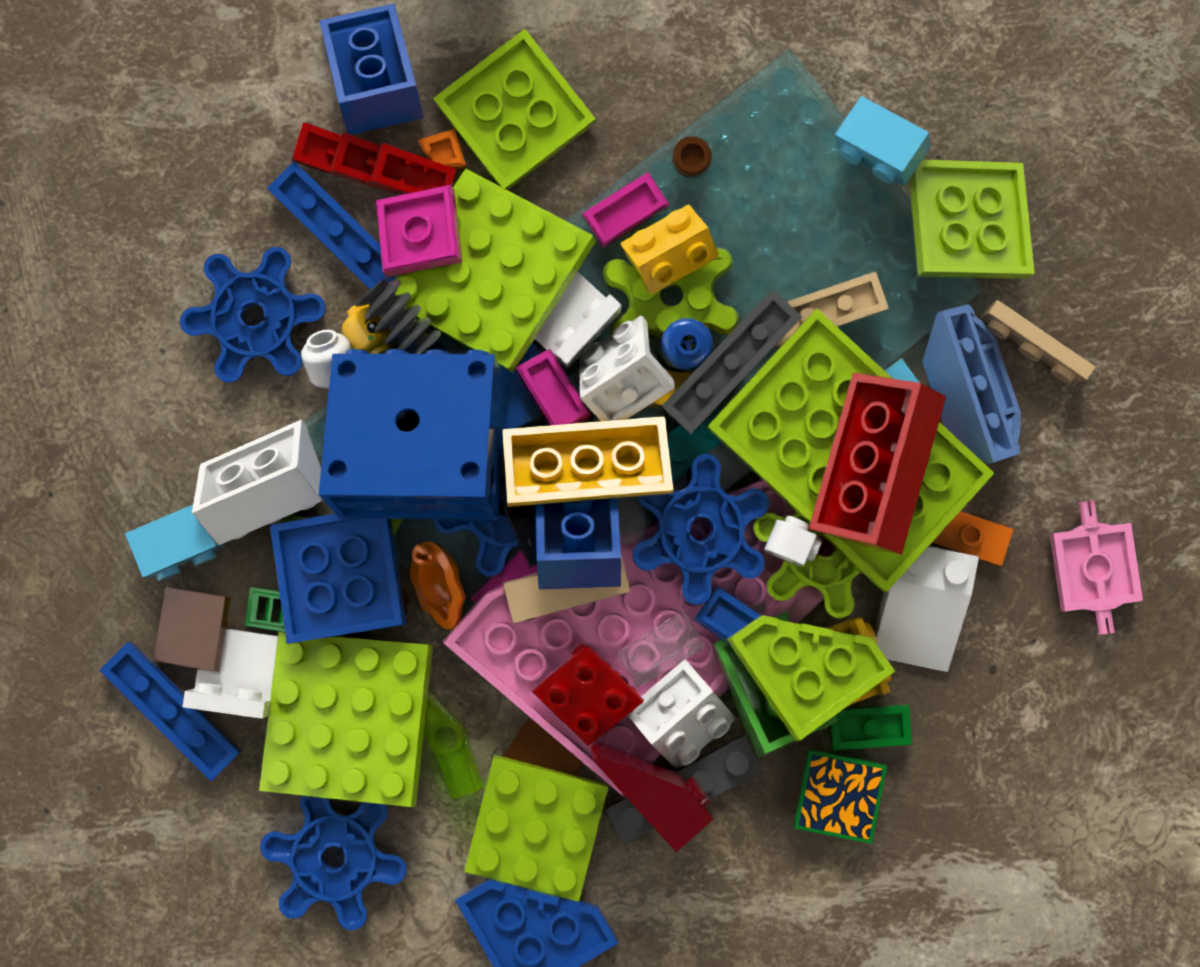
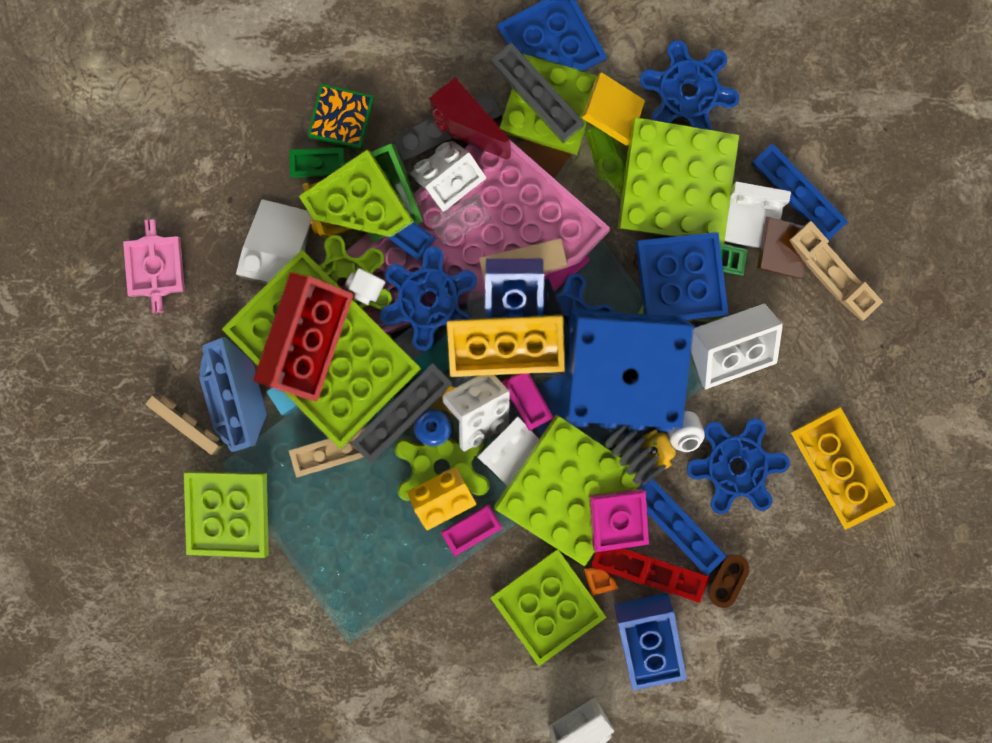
camera: 175 degrees left, 0 degrees up
(104, 319) = (842, 467): none -> yellow slope
(118, 595) = (833, 272): none -> tan slope
(171, 543) = (798, 307): medium azure brick -> none
(261, 156) = (730, 581): none -> reddish brown plate
(437, 583) = (612, 270): orange arm -> none
(444, 823) = (612, 108): none -> yellow tile
(555, 840) = (537, 92): none -> dark grey plate
(588, 694) = (510, 189): red hinge -> none
(691, 157) = (422, 566): reddish brown tile -> none
(882, 142) = (286, 569): medium azure brick -> none
(976, 537) = (234, 289): orange plate -> none

